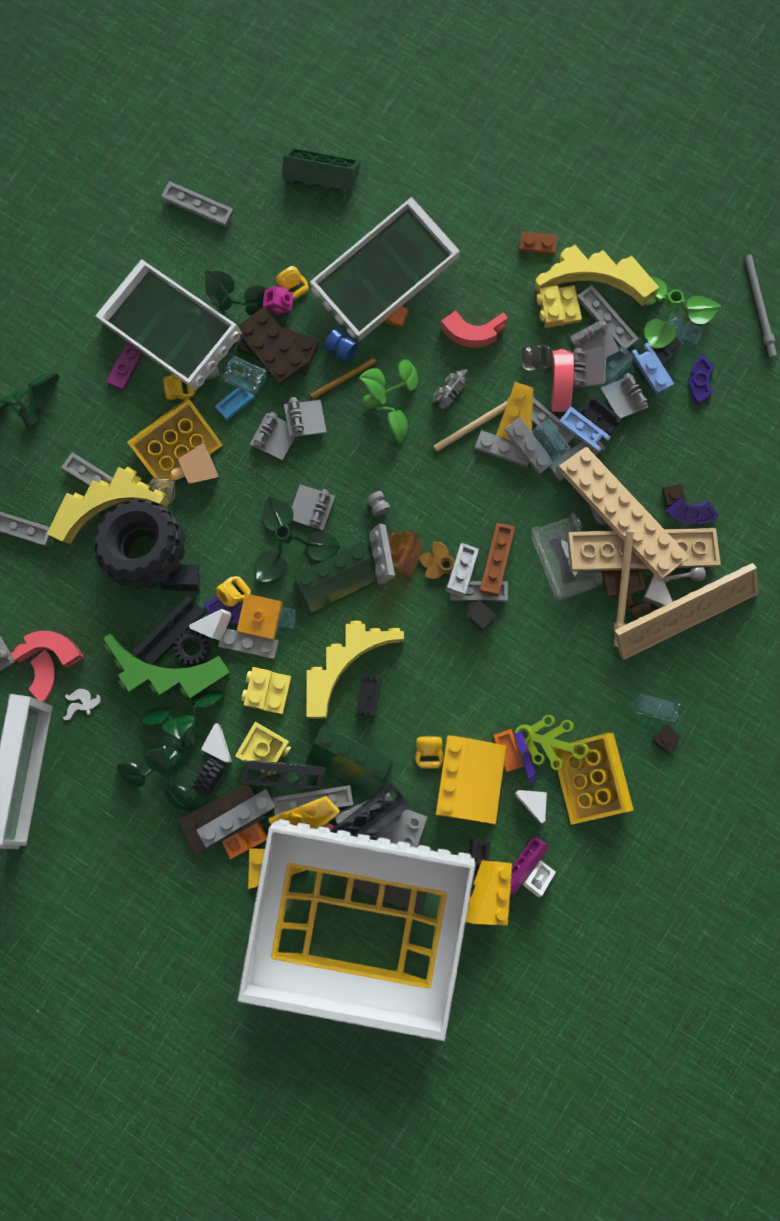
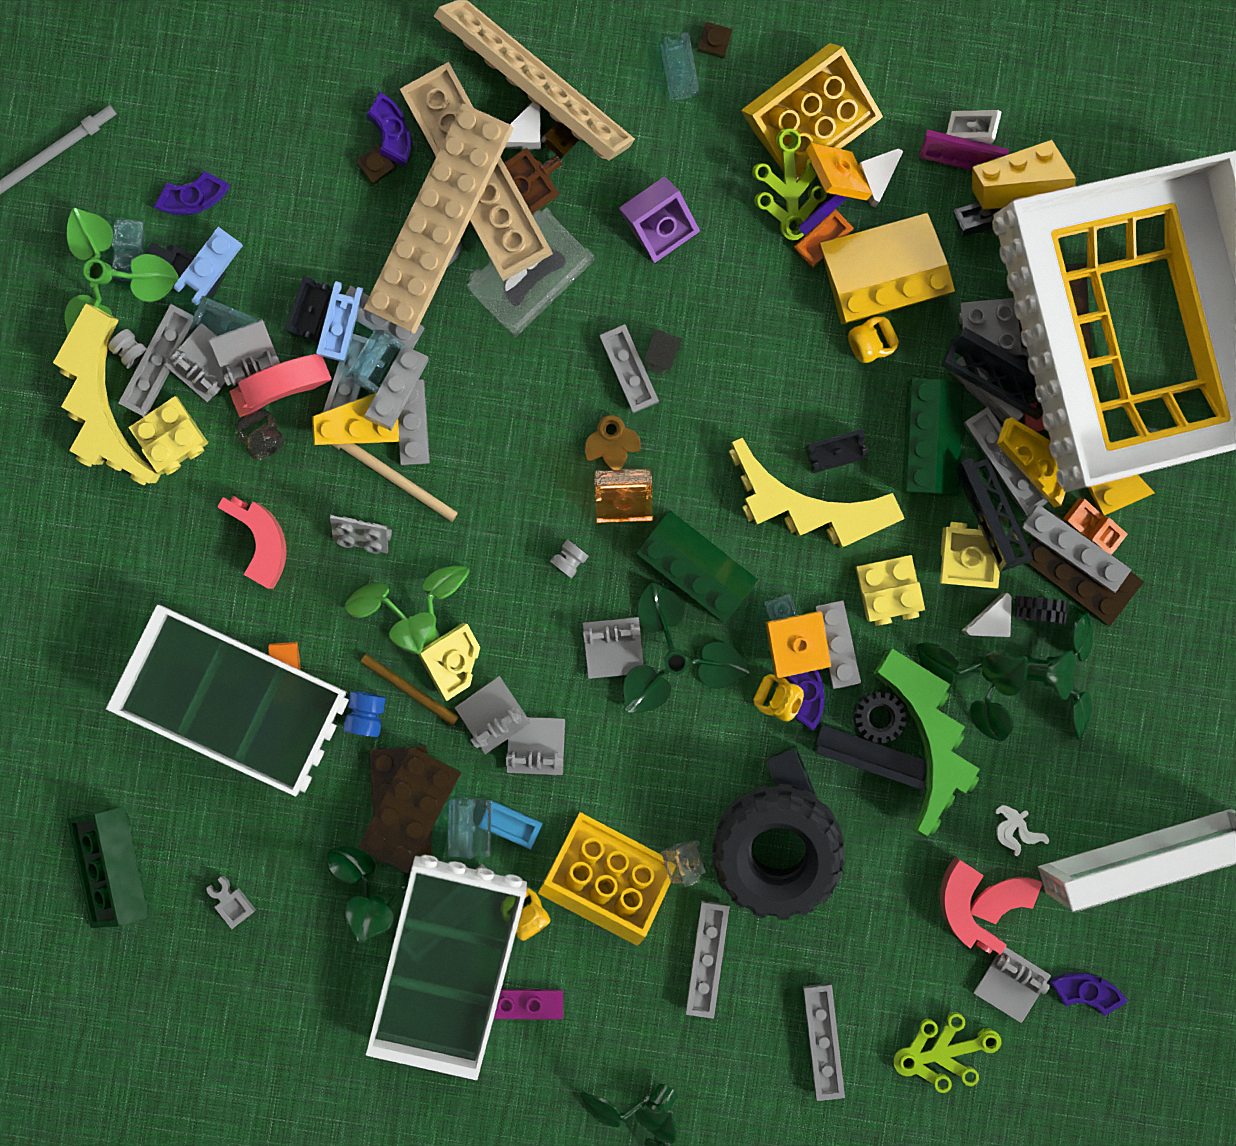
camera: 115 degrees left, 10 degrees up
(79, 509) = (765, 963): light yellow arch -> none
(195, 466) = (629, 831): light nougat torso -> none
(197, 204) = (240, 1020): light grey plate -> none
(213, 624) = (841, 700): white slope -> none
(264, 226) = (233, 906): none -> light grey plate
(278, 300) = (338, 833): dark pink brick -> none
(291, 277) = (297, 833): yellow piece -> none
(349, 408) = (451, 660): none -> light yellow plate
(381, 554) = (638, 520): light grey plate -> none
(462, 570) = (612, 401): light grey plate -> none
(497, 559) = (576, 361): dark orange plate -> none
(538, 243) = (85, 506): dark orange plate -> none
(546, 774) = (838, 171): none -> light orange plate
(565, 651) = (659, 219): none -> medium lavender slope
(622, 303) = (127, 348): none -> light grey wheel
(624, 396) = (265, 288): light grey hinge -> none
(624, 583) = (591, 162): tan bar -> none
(696, 574) = (475, 91): light grey hinge -> none

